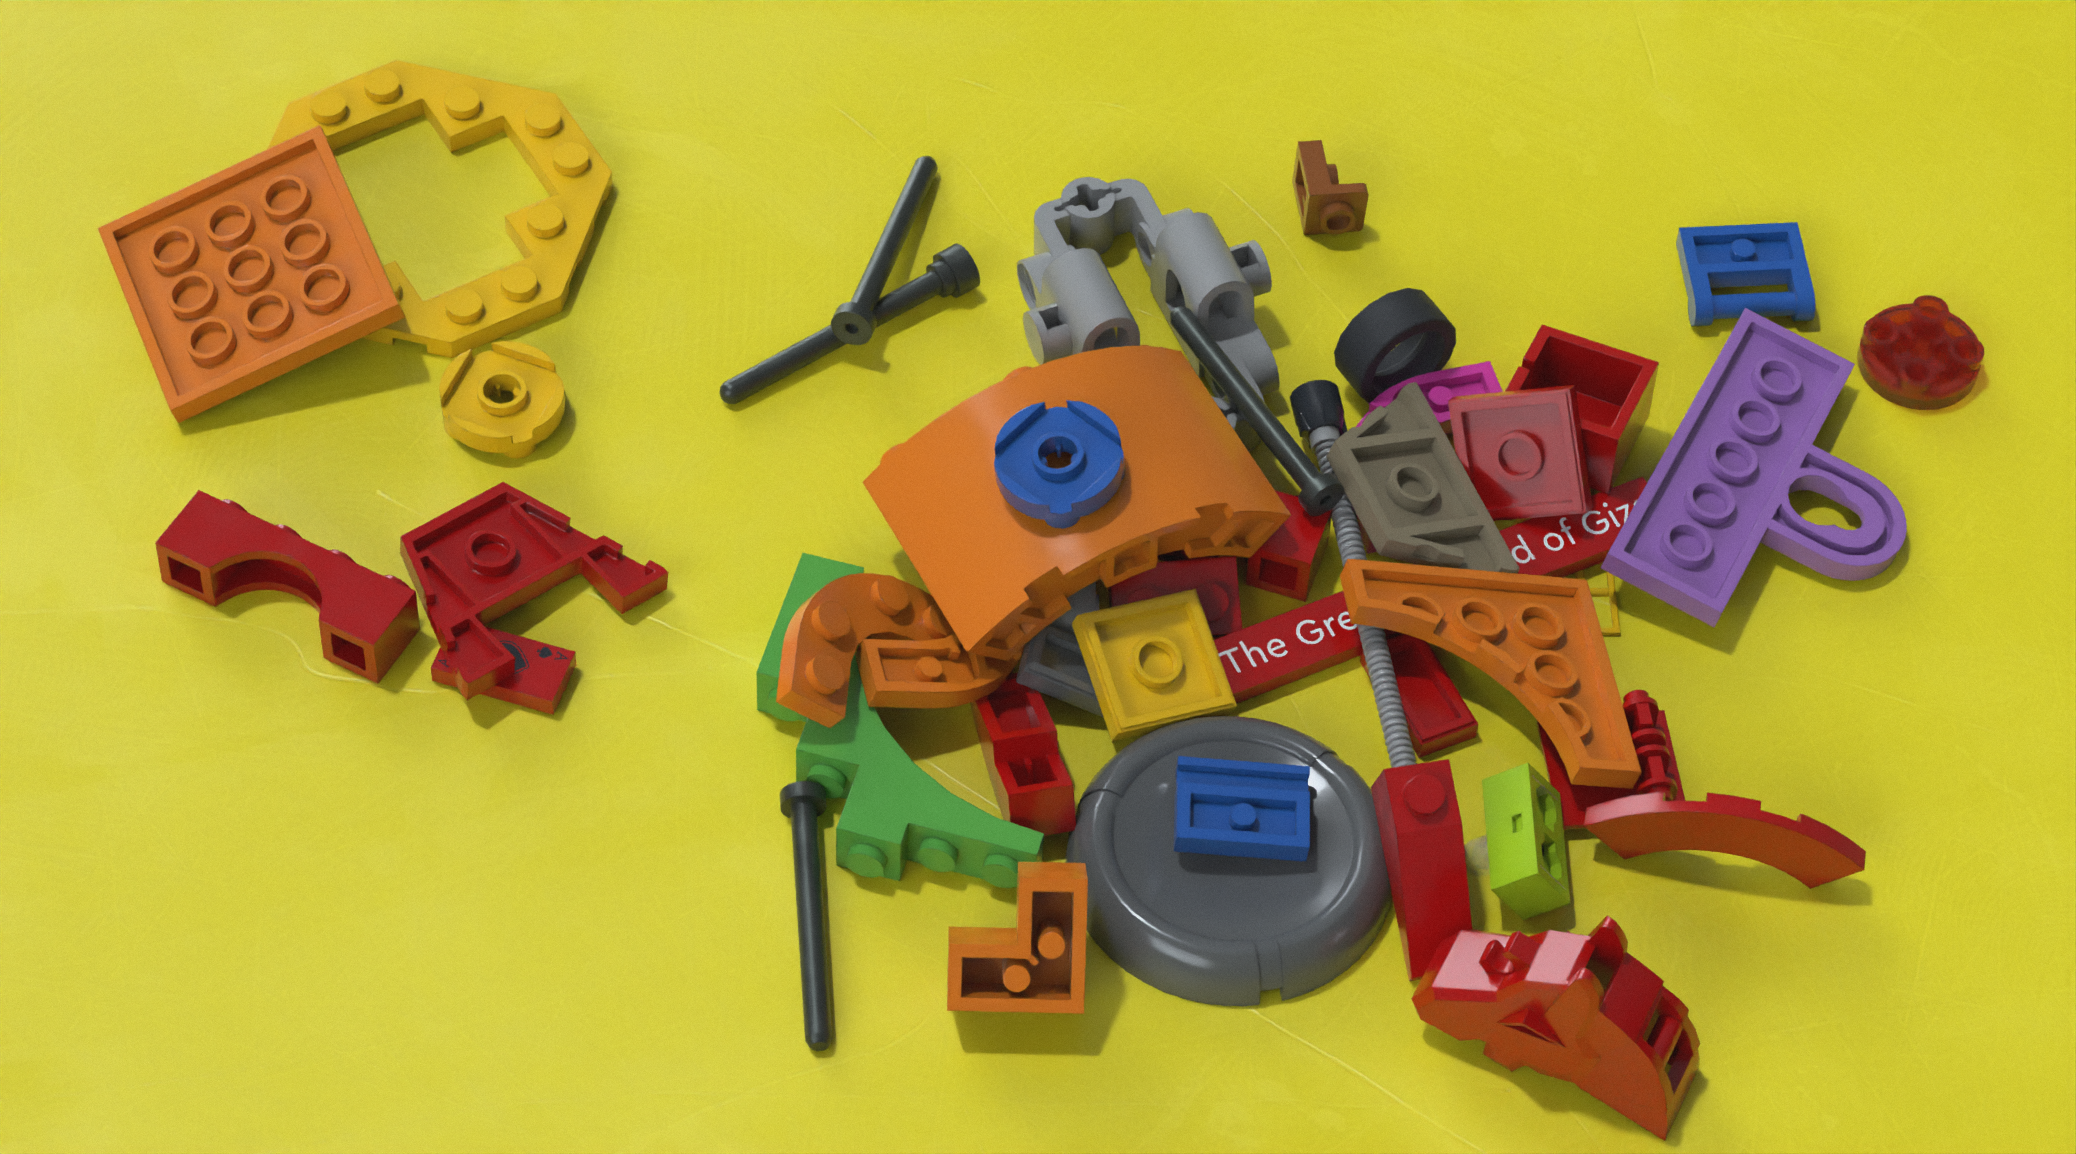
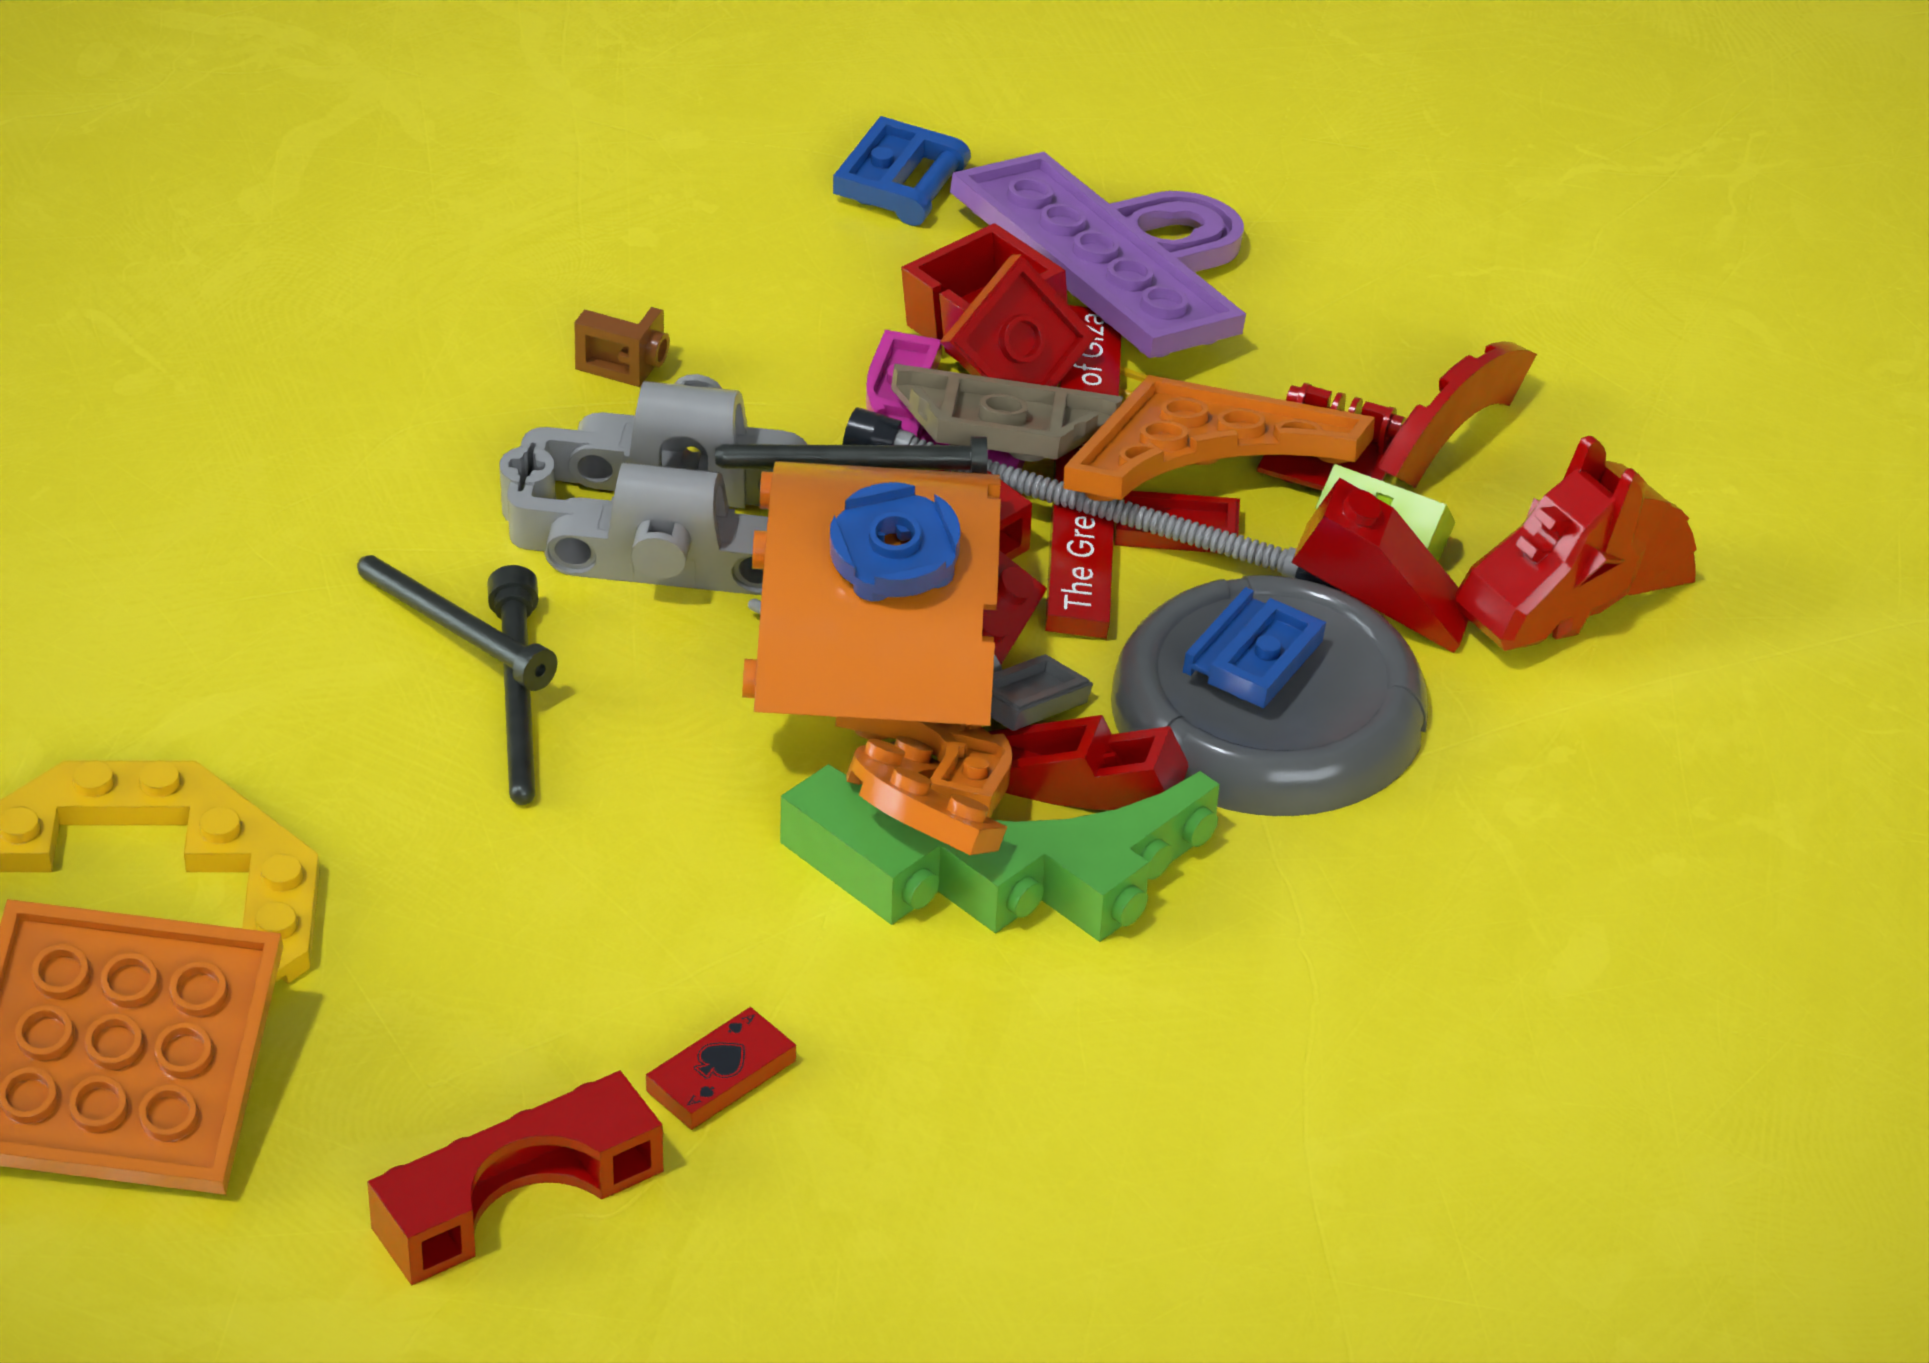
camera: 60 degrees left, 10 degrees down
(498, 557) = (606, 1016): red wing -> none
(502, 427) = (406, 971): yellow plate -> none
(803, 804) = (1034, 927): pearl dark grey bar -> none
(1028, 966) = (1321, 822): orange brick -> none
(1153, 664) = (1062, 639): yellow plate -> none
(1398, 317) = (838, 364): black tyre -> none
(1920, 355) = (1050, 120): clear red tile -> none

